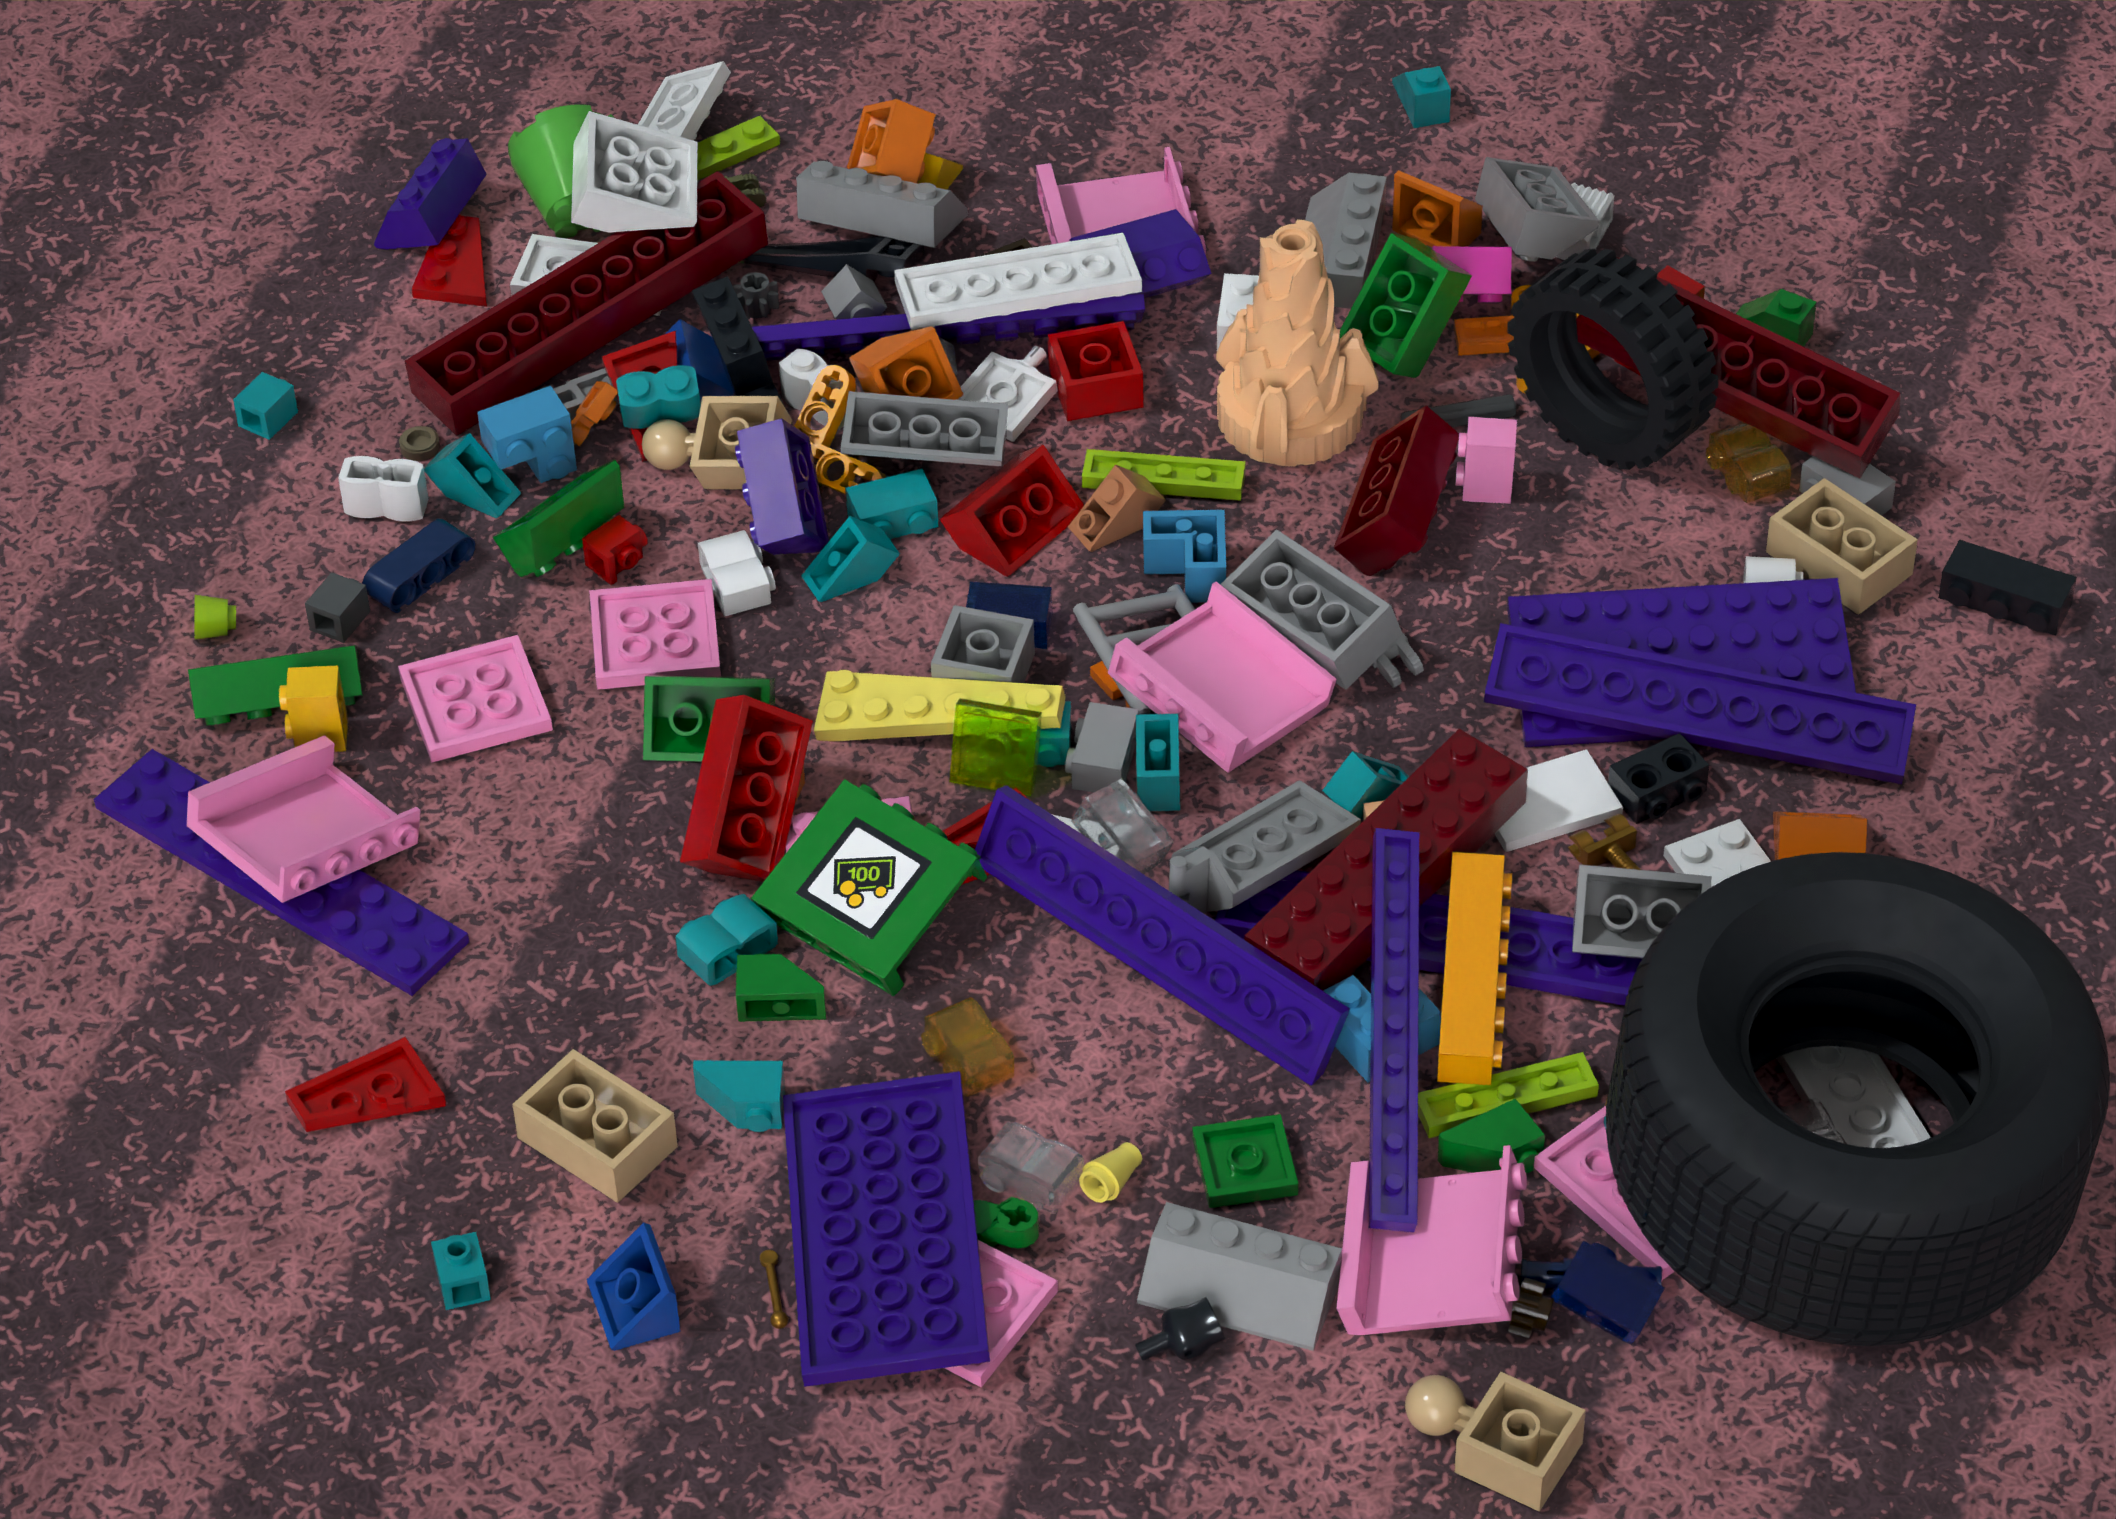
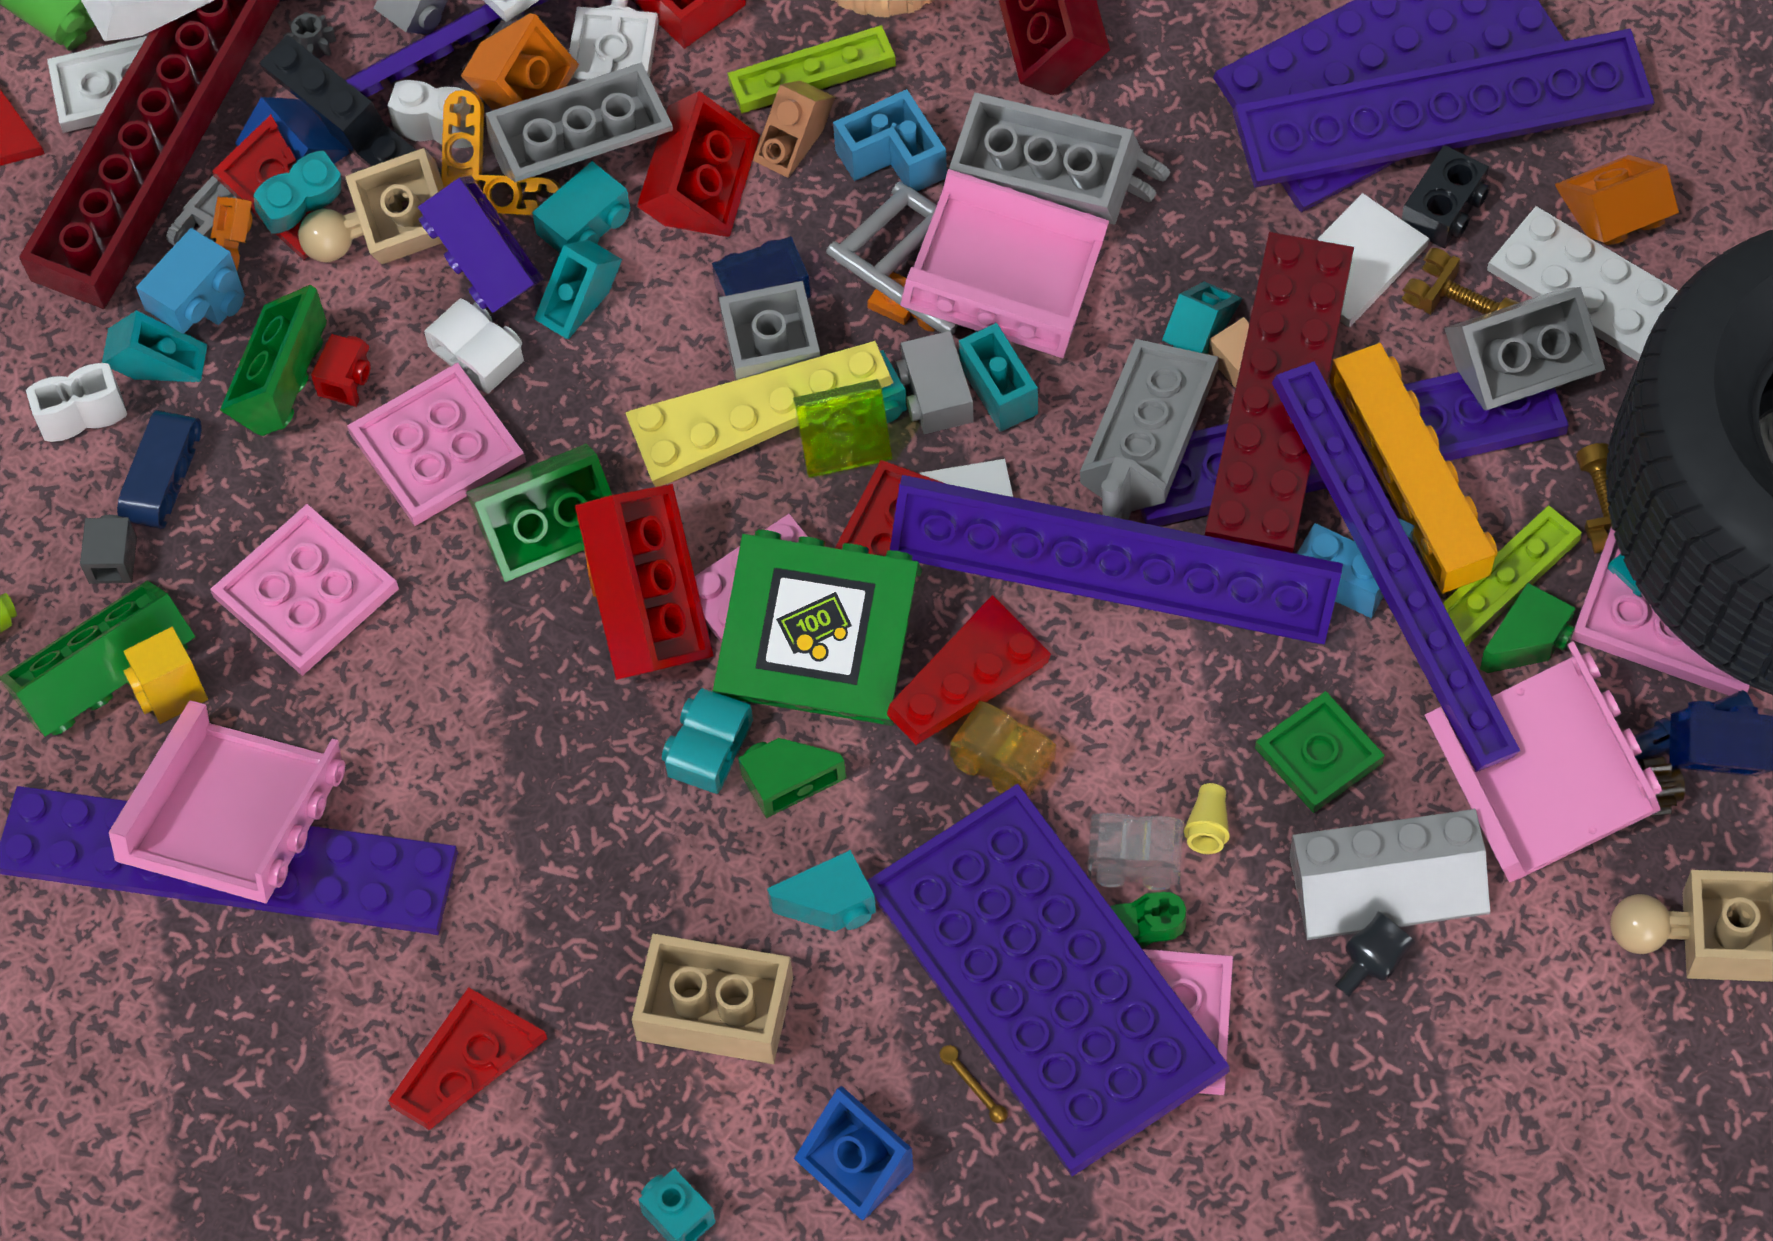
camera: 25 degrees left, 15 degrees up
(419, 443) = (73, 333): dark tan tile -> none
(991, 971) = (972, 667): none -> red wing
(1123, 826) = (1011, 462): clear brick -> none

